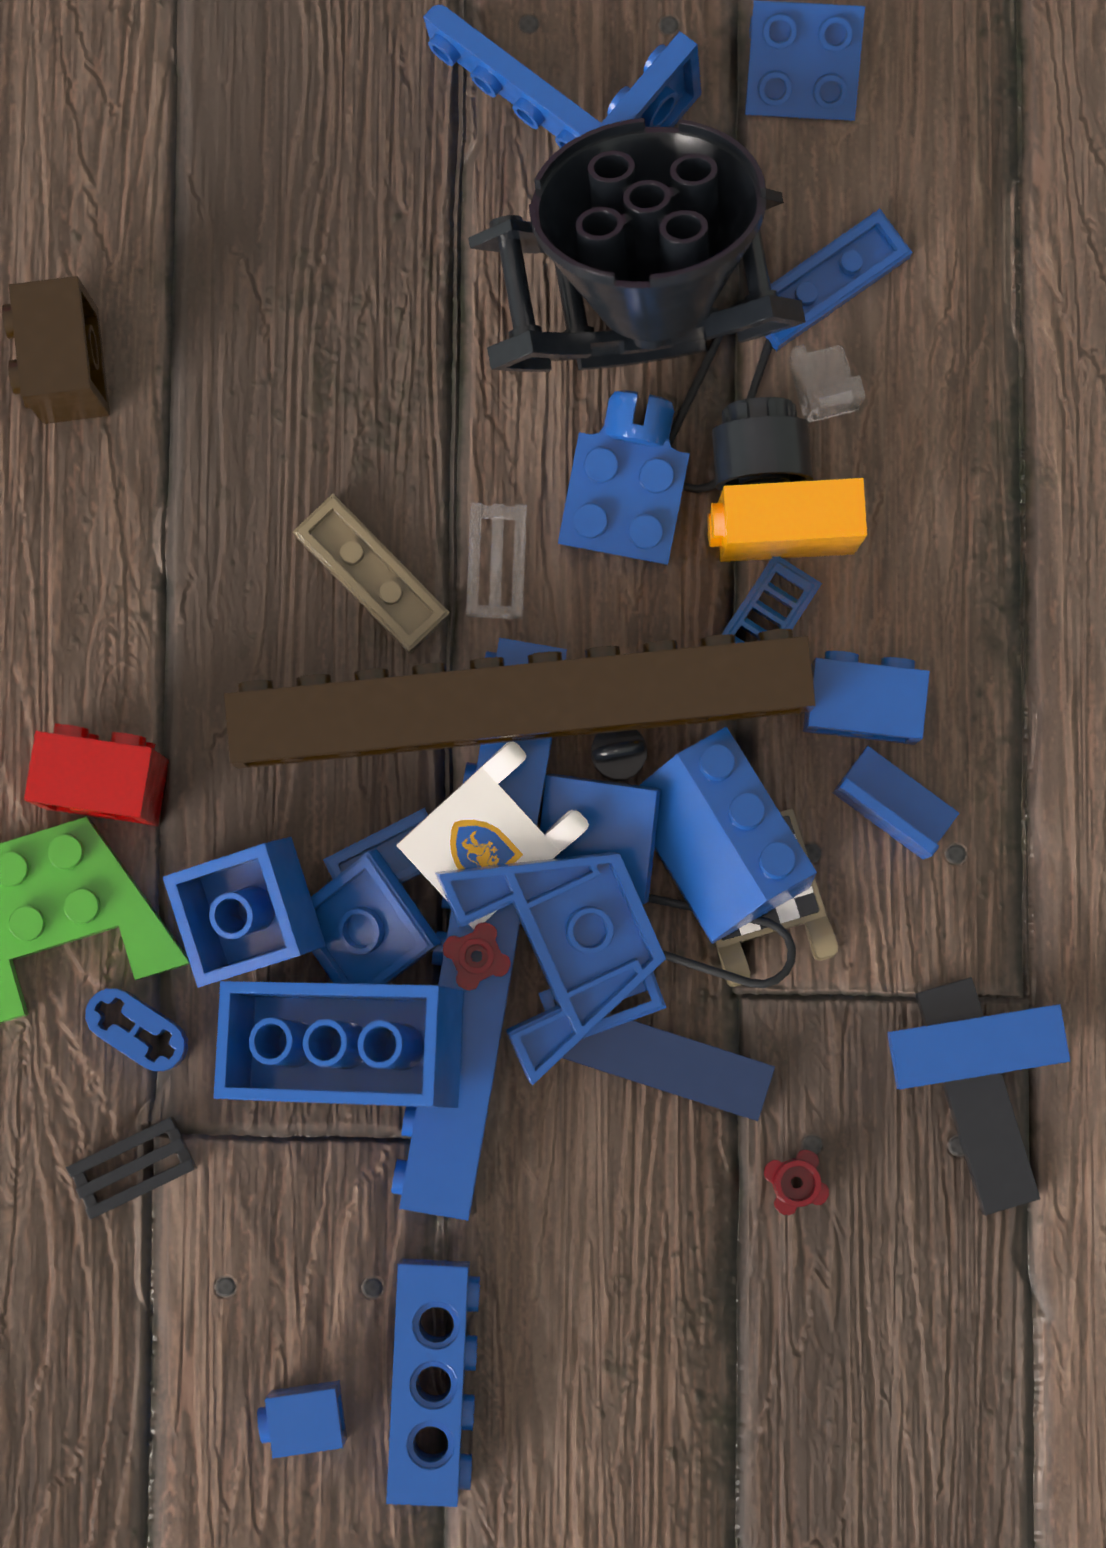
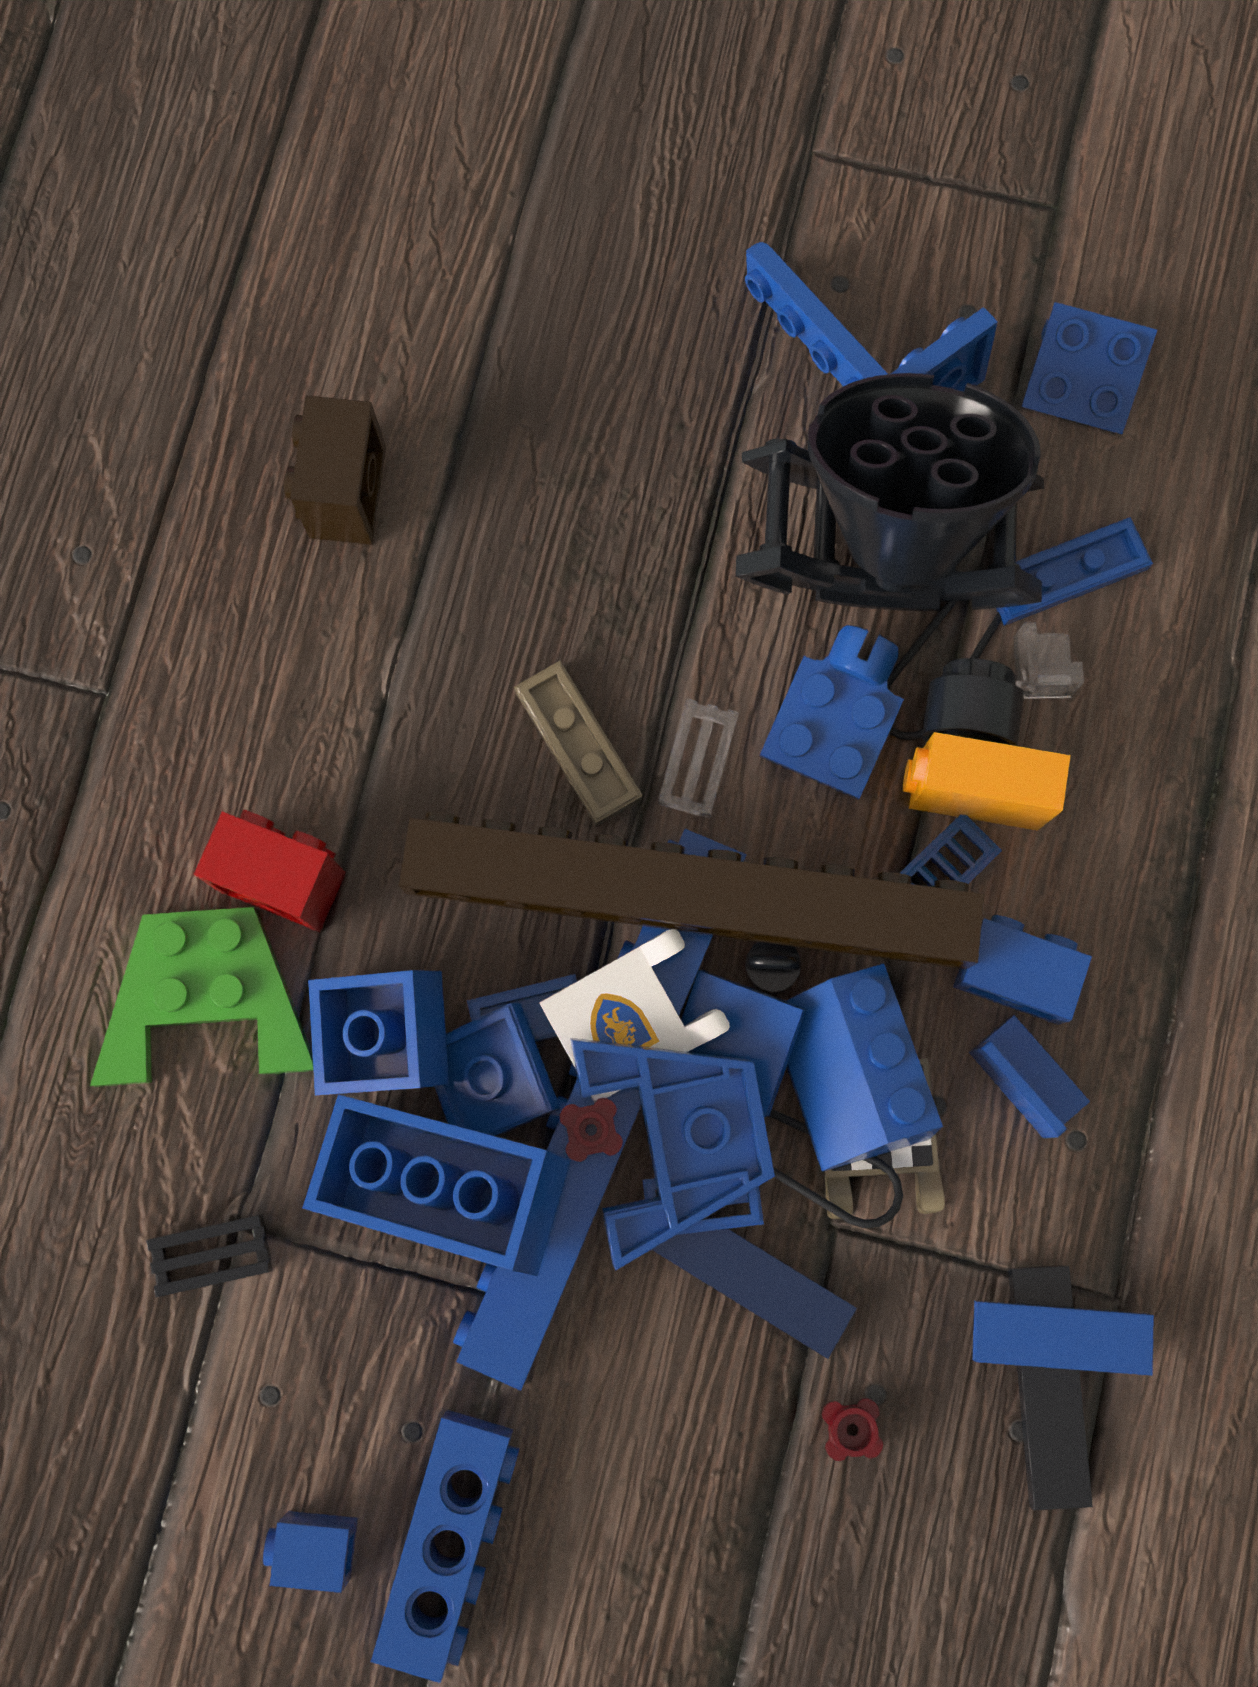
camera: 15 degrees right, 5 degrees down
(144, 1018) = (239, 1131): blue beam -> none

